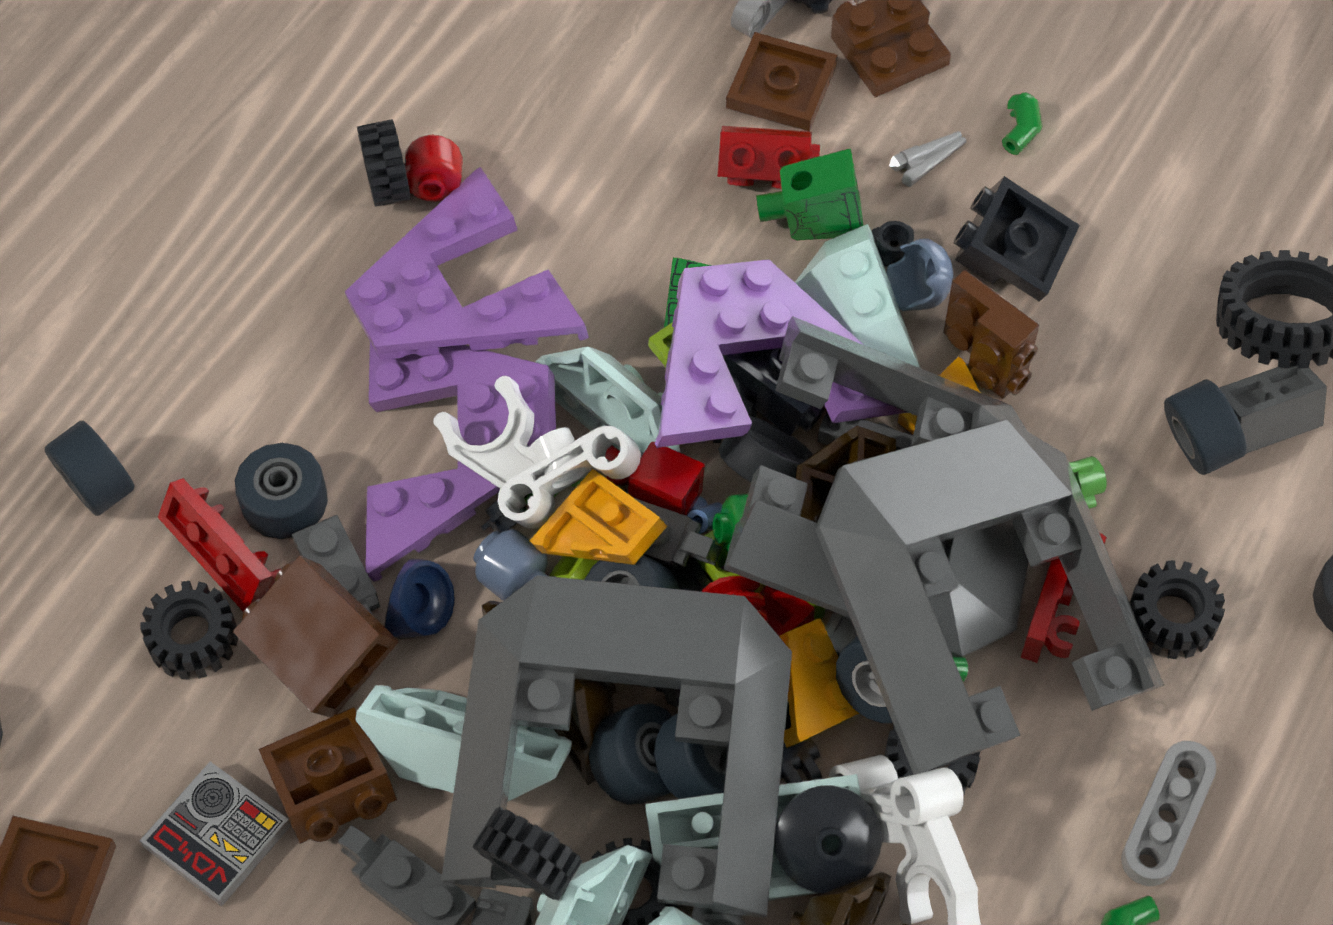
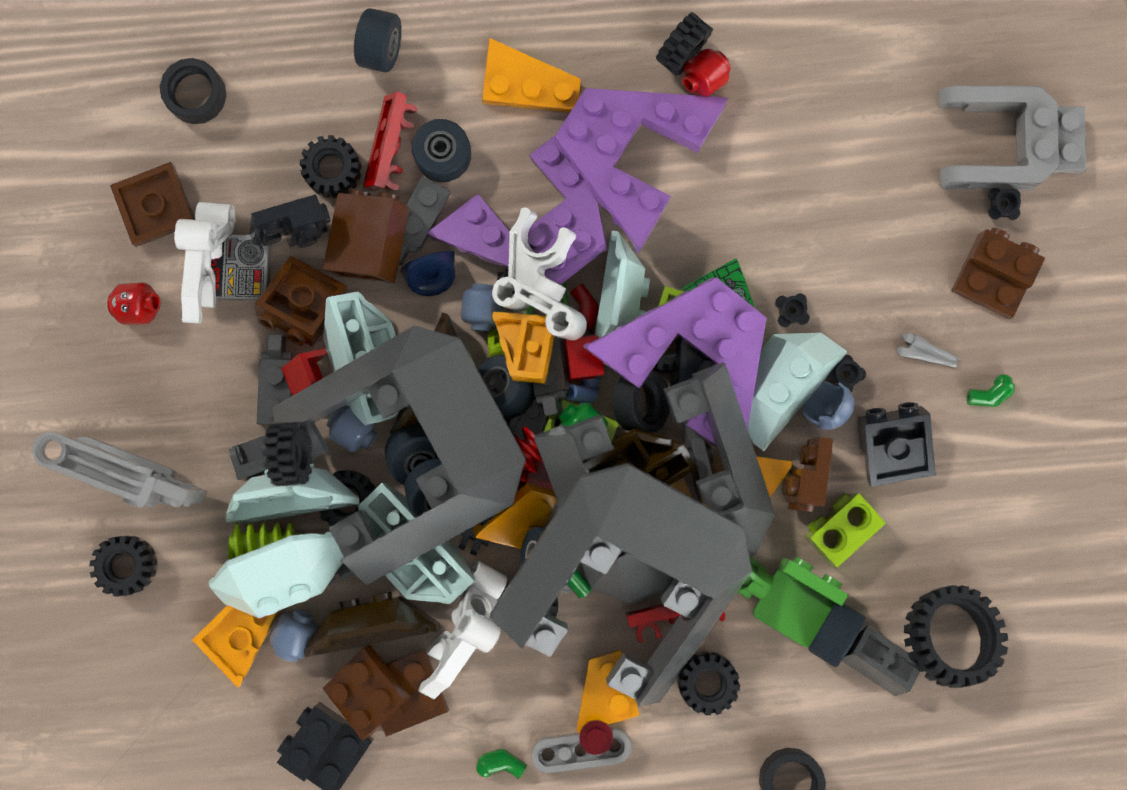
camera: 55 degrees right, 25 degrees up
(148, 815) = (202, 242): none -> white piece
(223, 706) = (298, 220): none -> black plate
(281, 355) = (526, 82): none -> light orange wing
(422, 823) = (303, 370): none -> red panel
(549, 809) = (350, 431): none -> sand blue head
(761, 153) = (852, 259): red brick -> none
(778, 241) = (798, 302): none -> black plate
(781, 81) = (917, 230): reddish brown plate -> none
(810, 819) = (438, 583): black dish -> none
(816, 197) = (847, 319): green torso -> none
(1089, 350) = (848, 536): none -> lime brick
(1111, 741) = (601, 700): none -> light orange wing
(1135, 444) = (799, 601): none -> bright green bracket
(1163, 771) = (596, 737): none -> dark red plate

